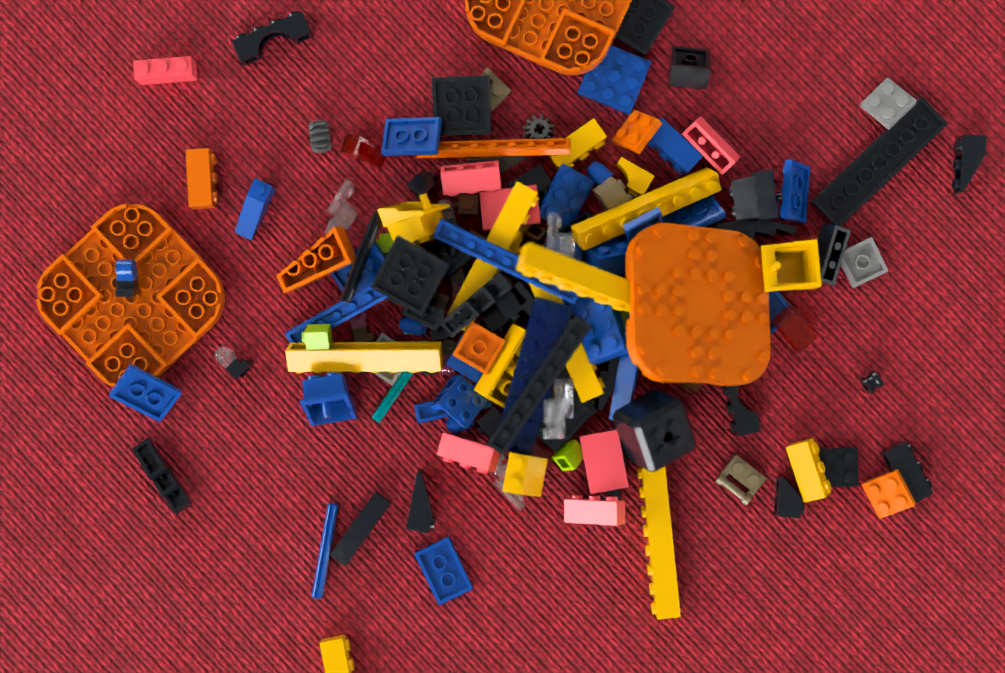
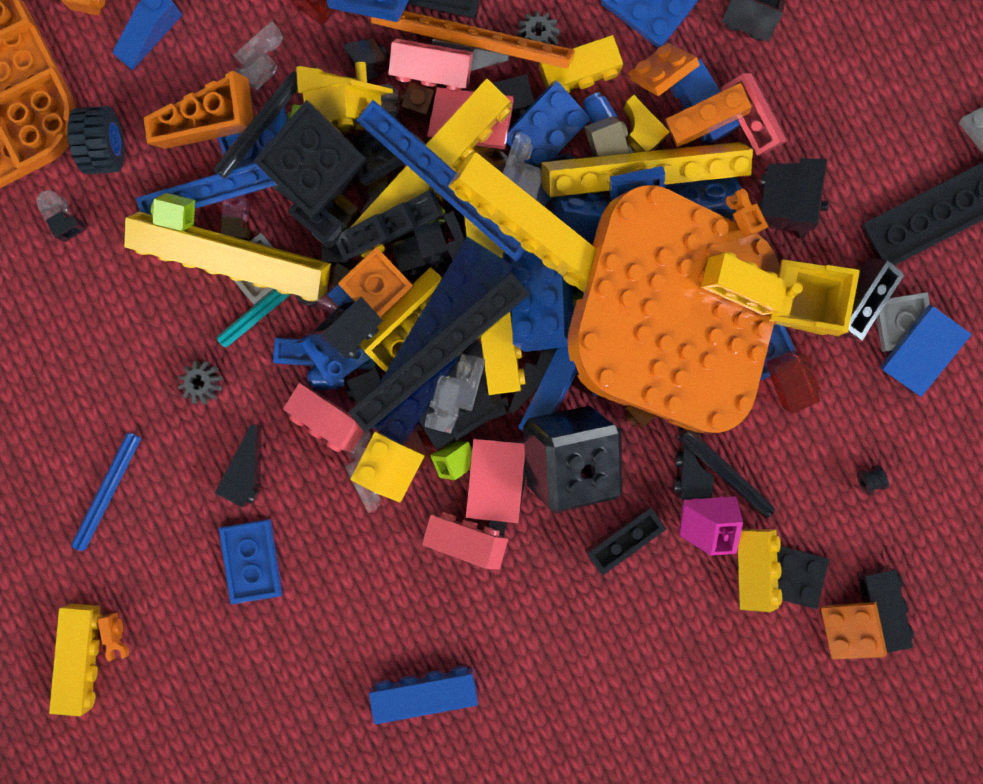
camera: 15 degrees right, 0 degrees up
(247, 301) = (96, 139): none -> black wheel
(327, 399) = (163, 296): blue piece -> none
(359, 648) = (111, 631): none -> orange plate
(360, 528) = (159, 476): black slope -> none
(366, 457) = (196, 391): none -> dark grey gear
(412, 327) = (301, 237): blue brick -> none
(468, 385) = (346, 328): none -> black brick
(596, 630) = (423, 695): none -> blue brick
(660, 543) = (538, 609): yellow brick -> none
(679, 158) = (708, 115): none -> orange brick
(707, 476) = (625, 539): none -> black brick
(727, 222) = (747, 216): none -> orange plate
(739, 272) = (744, 283): none -> yellow brick
(744, 474) = (675, 554): dark tan plate -> none
(760, 228) = (794, 243): black slope -> none
(766, 408) = (727, 473): none -> black axle
(766, 448) = (712, 524): none -> dark pink slope
(787, 501) = (719, 600): black slope -> none
(795, 191) = (845, 204): blue plate -> none
(882, 279) = (925, 350): none -> blue tile

